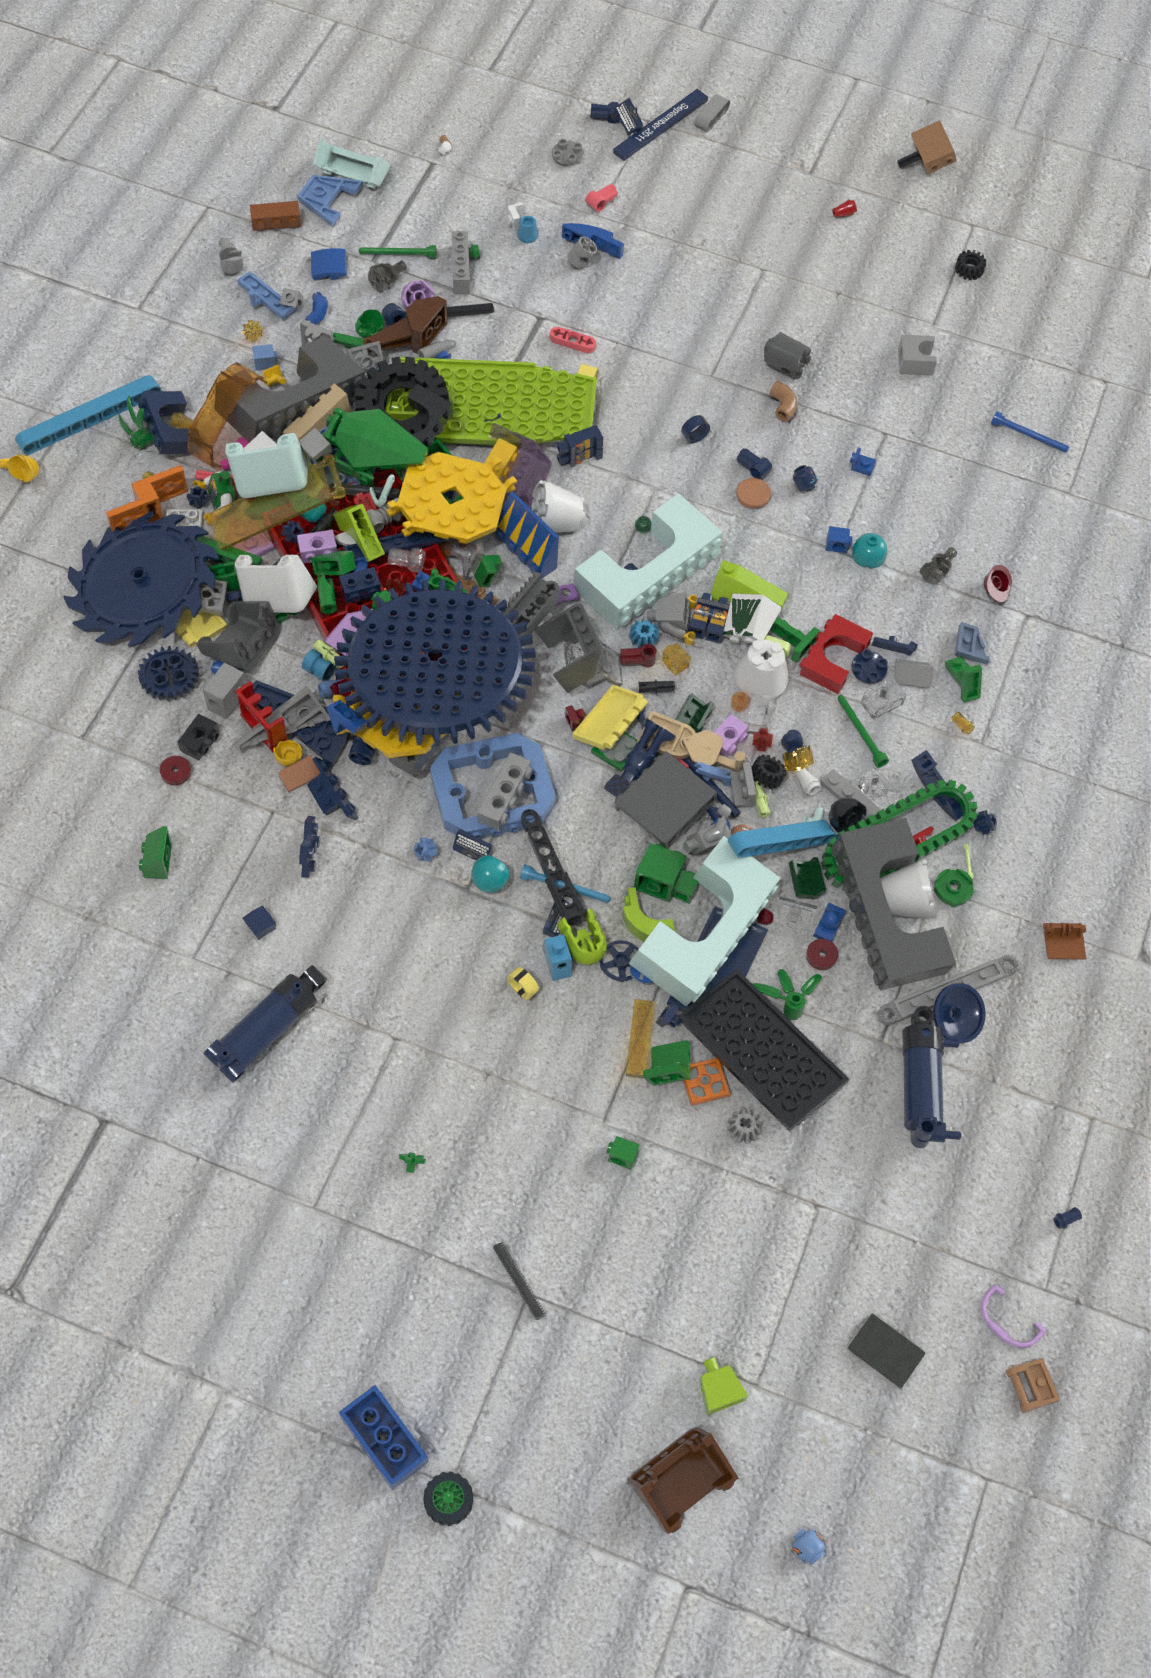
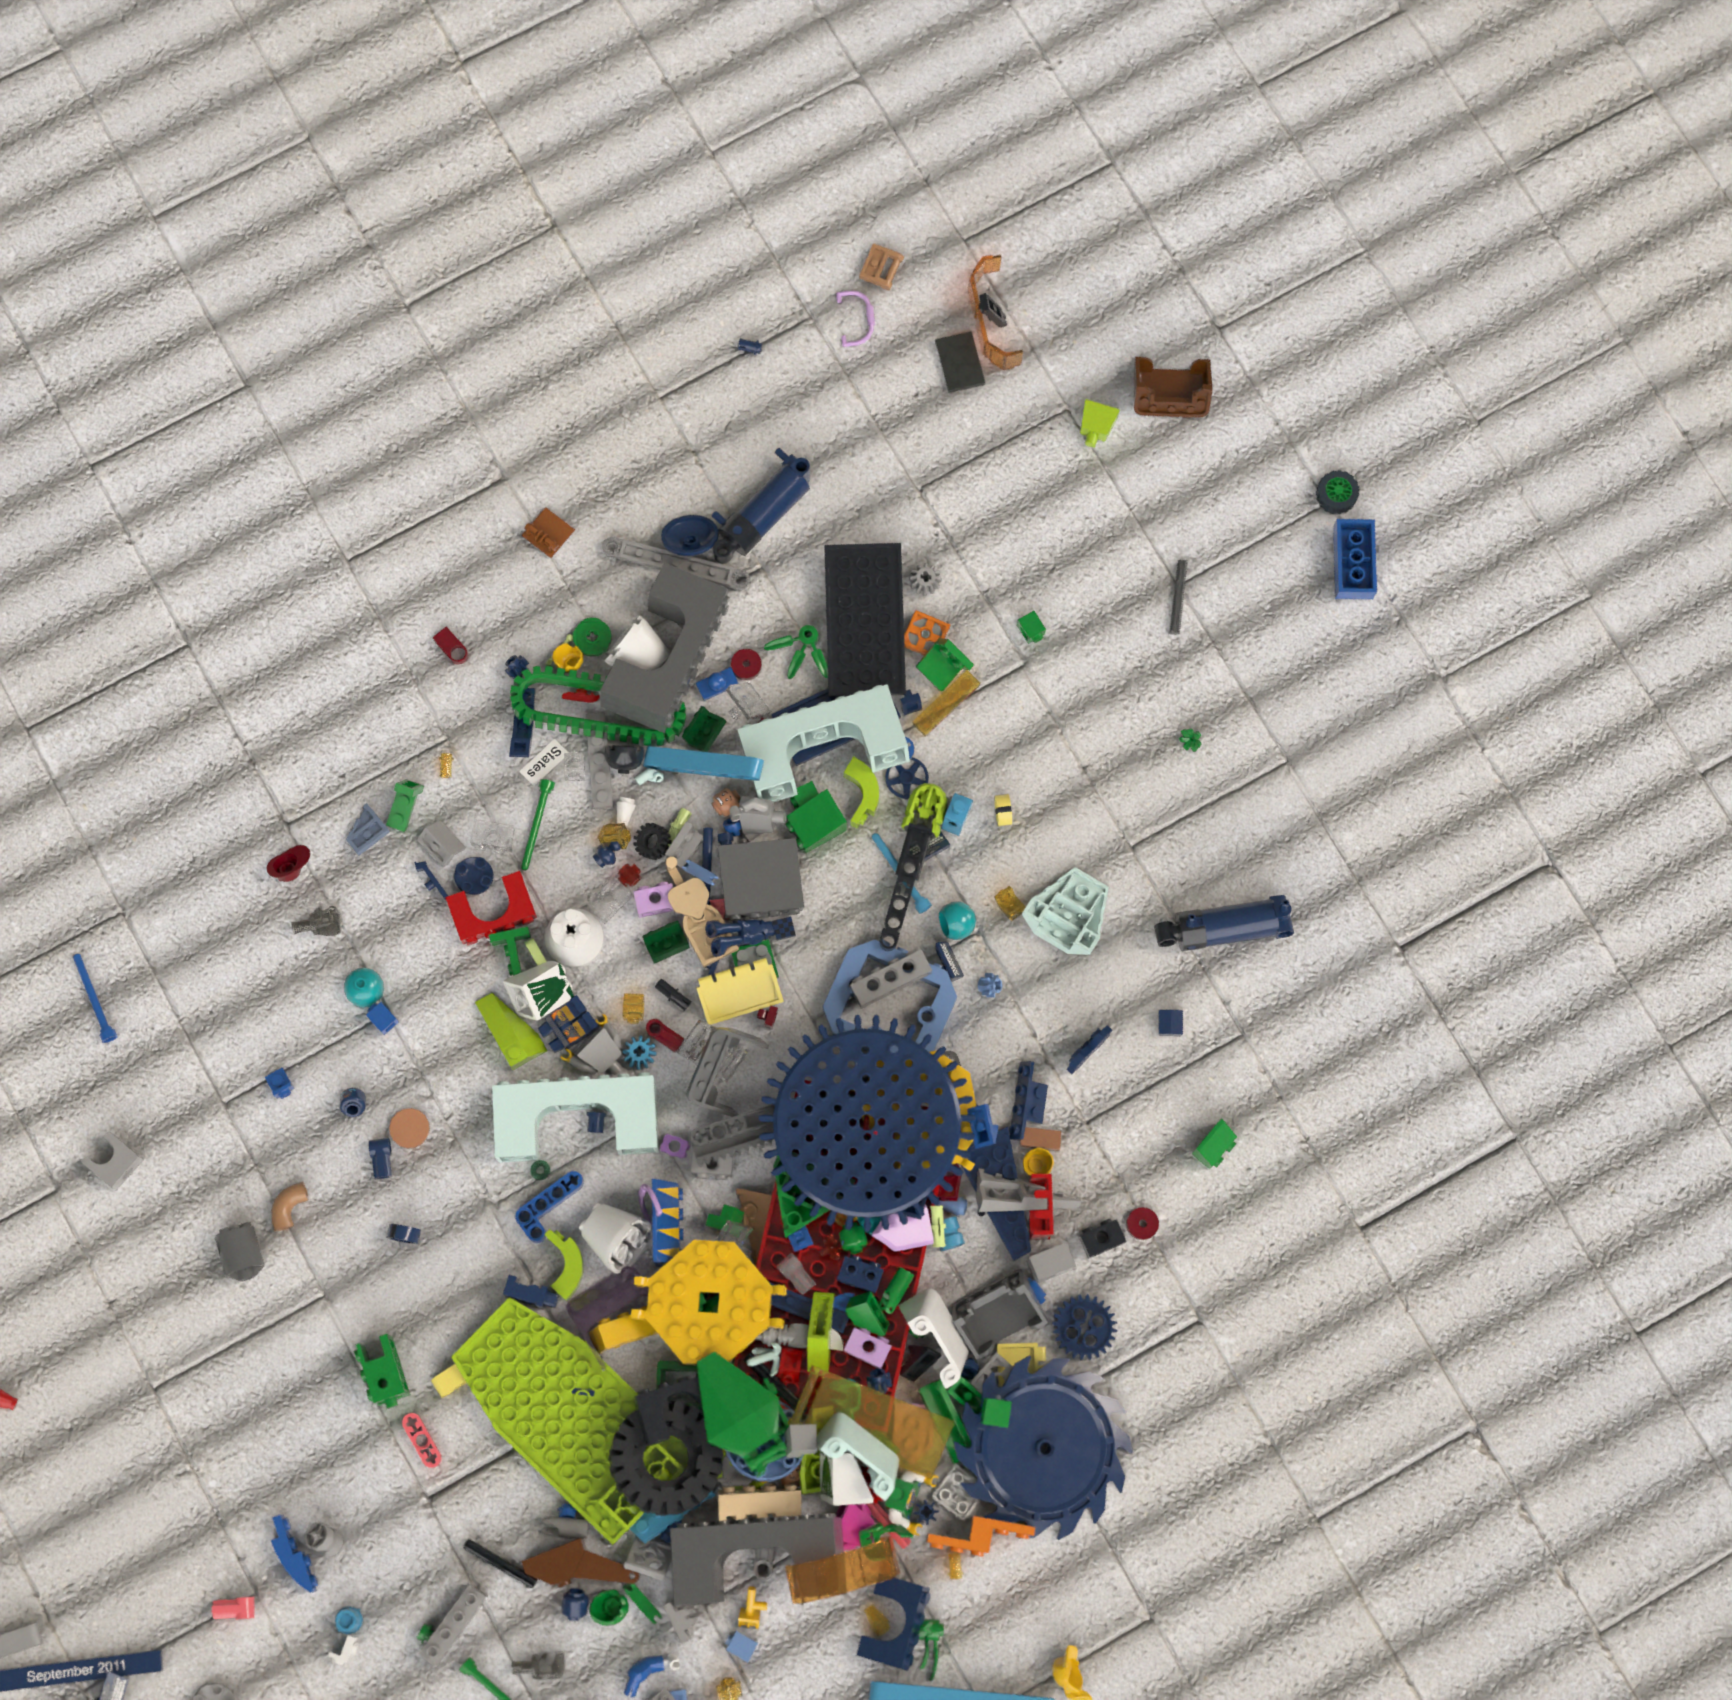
camera: 140 degrees left, 15 degrees up
(190, 558) = (996, 1412): none -> green piece
(218, 449) = (878, 1529): none -> green helmet
(325, 522) = (846, 1370): black pin -> none
(405, 946) = (1069, 912): none -> light aqua wedge
(414, 291) = (537, 1604): lavender cylinder -> none
(458, 920) = (1009, 903): none -> clear yellow bracket
(561, 539) = (641, 1192): none -> lavender piece
(563, 478) = (573, 1271): none -> lime arch
(623, 493) = (552, 1203): none -> blue beam
(632, 350) = (383, 1374): none -> green torso
(740, 701) = (613, 928): clear orange piece -> none
(808, 1546) = (1121, 288): medium blue head -> none
(898, 777) = (543, 762): none -> white sticker
(900, 1410) = (992, 310): none -> black hinge
(912, 1404) = (998, 357): none -> clear orange windscreen
(955, 854) = (568, 657): none -> yellow hair
(1049, 806) = (448, 642): none -> dark red piece

